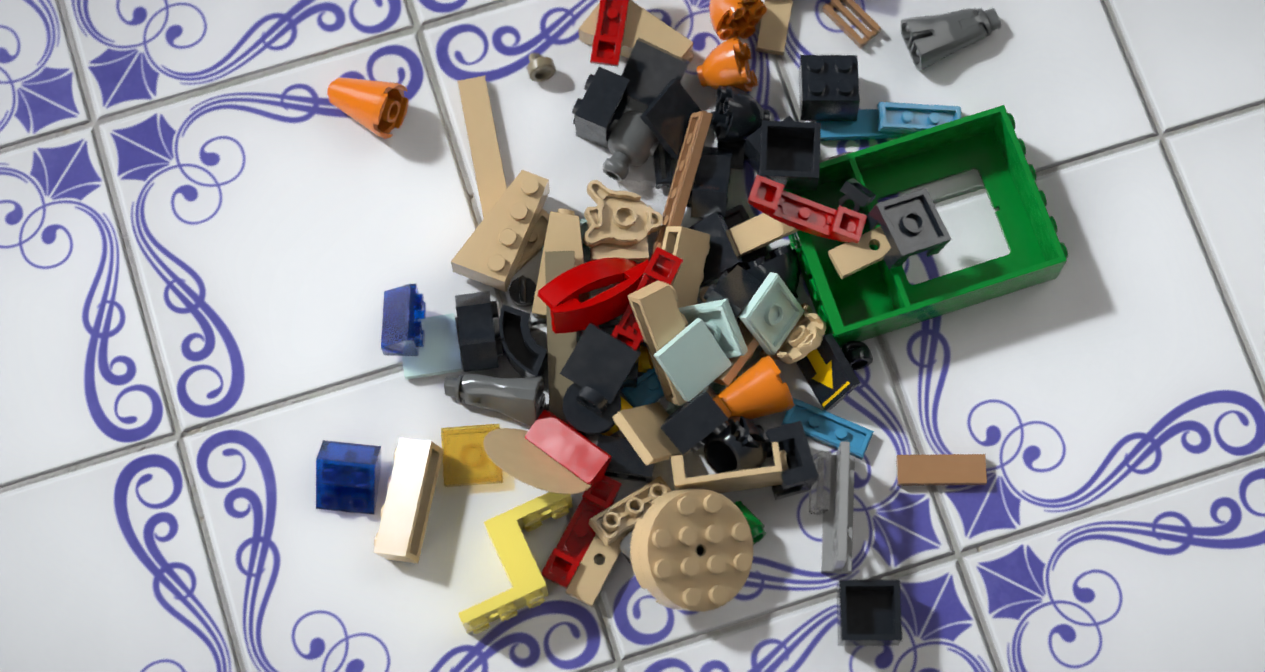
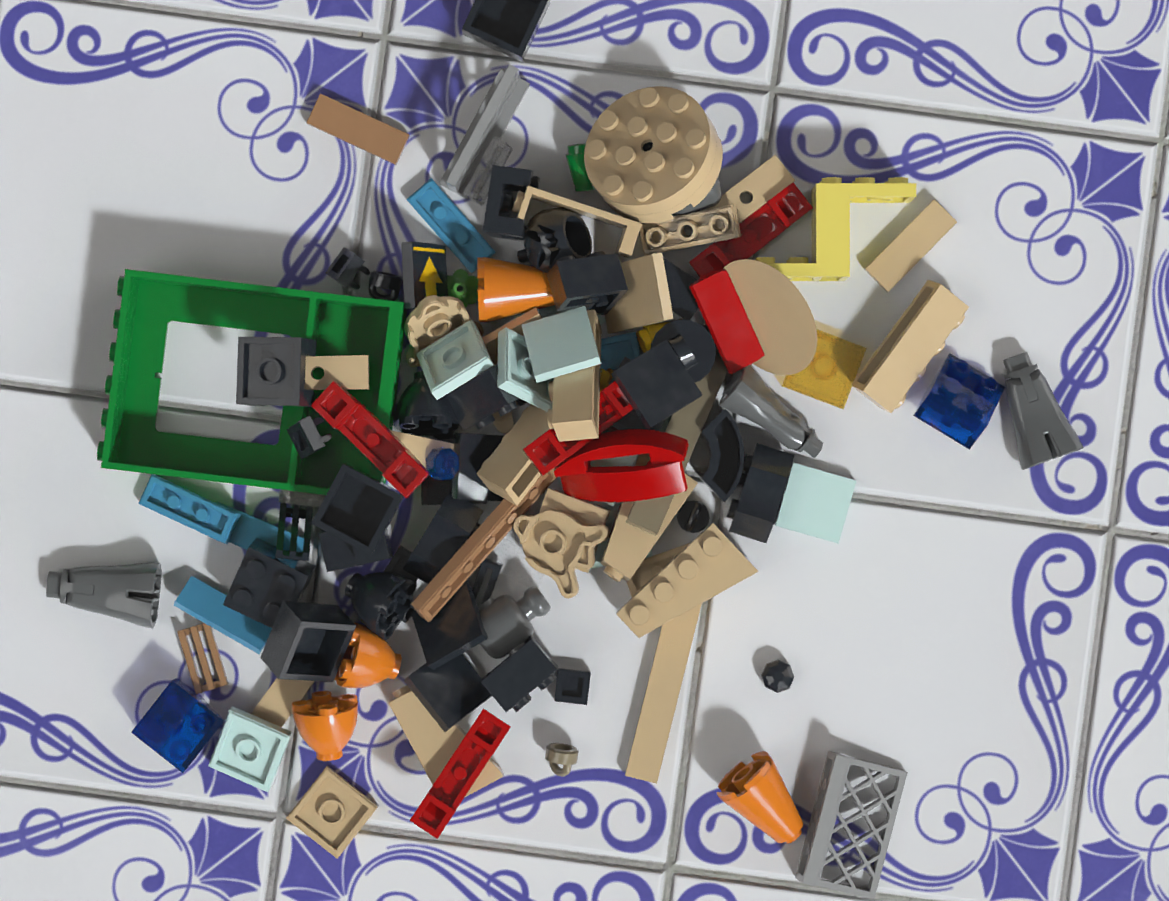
camera: 155 degrees left, 15 degrees up
(279, 494) = (1037, 418): none -> dark grey piece
(312, 107) = (824, 817): none -> light grey fence
(399, 202) = (777, 676): none -> black tile
(402, 321) = (836, 533): clear blue slope -> none
(445, 586) = (910, 246): none -> tan tile
(557, 123) = (572, 686): none -> black tile
(741, 230) = (442, 463): none -> clear blue tile
(777, 53) = (308, 641): none -> black piece
(797, 389) = (469, 294): none -> bright green plant
(824, 113) = (295, 513): none -> black tile
(870, 56) = (207, 606): none -> dark azure tile
(894, 354) = (346, 267): none -> black tile

